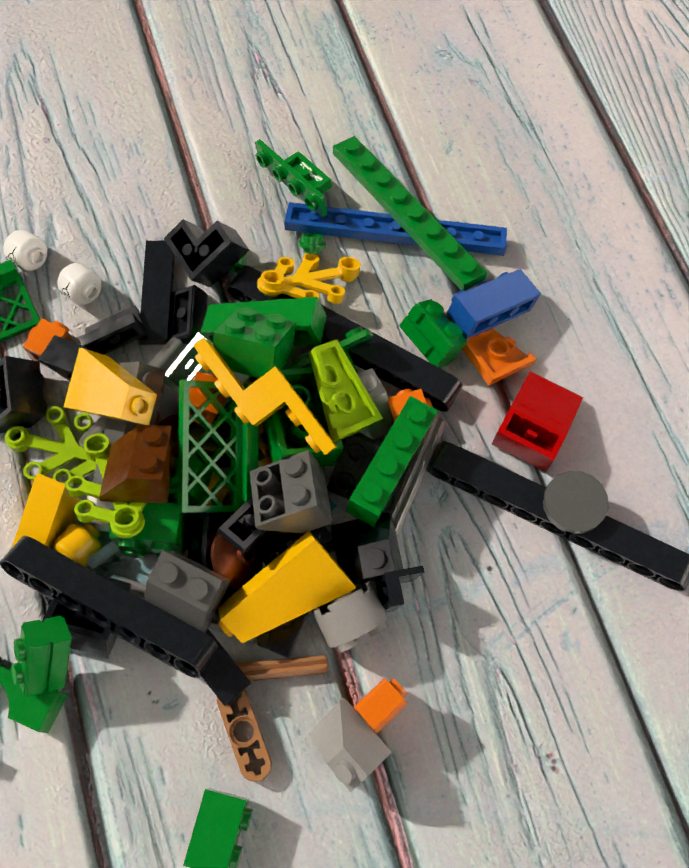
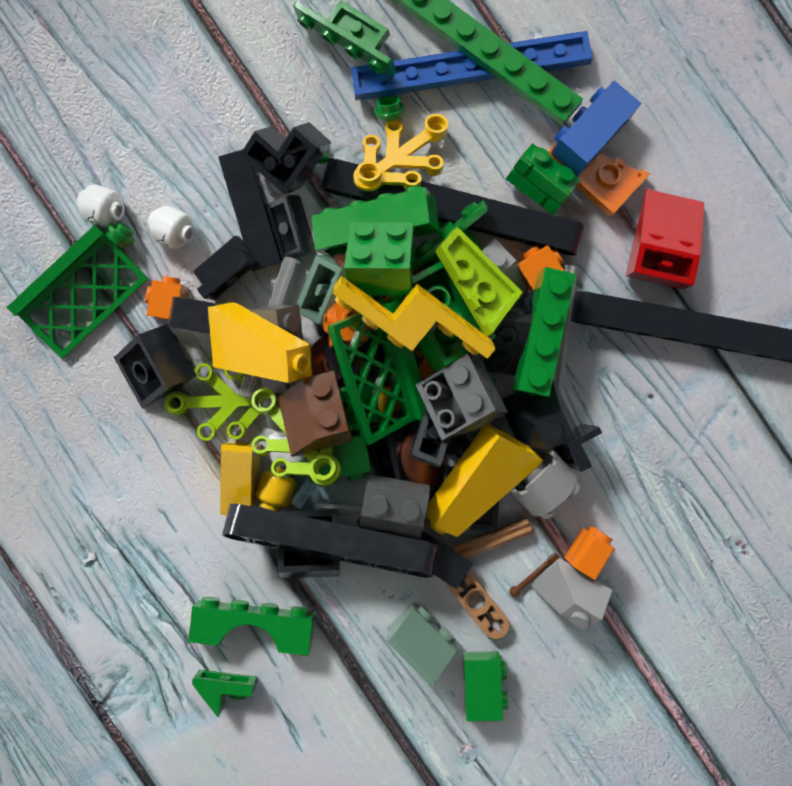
camera: 15 degrees left, 20 degrees up
(32, 278) = (120, 234): none -> green plate
(42, 656) = (291, 599): green brick -> none
(166, 755) = (422, 642): none -> sand green slope
(289, 733) = (515, 591): none -> reddish brown hinge
(575, 502) = (721, 318): dark grey tile -> none

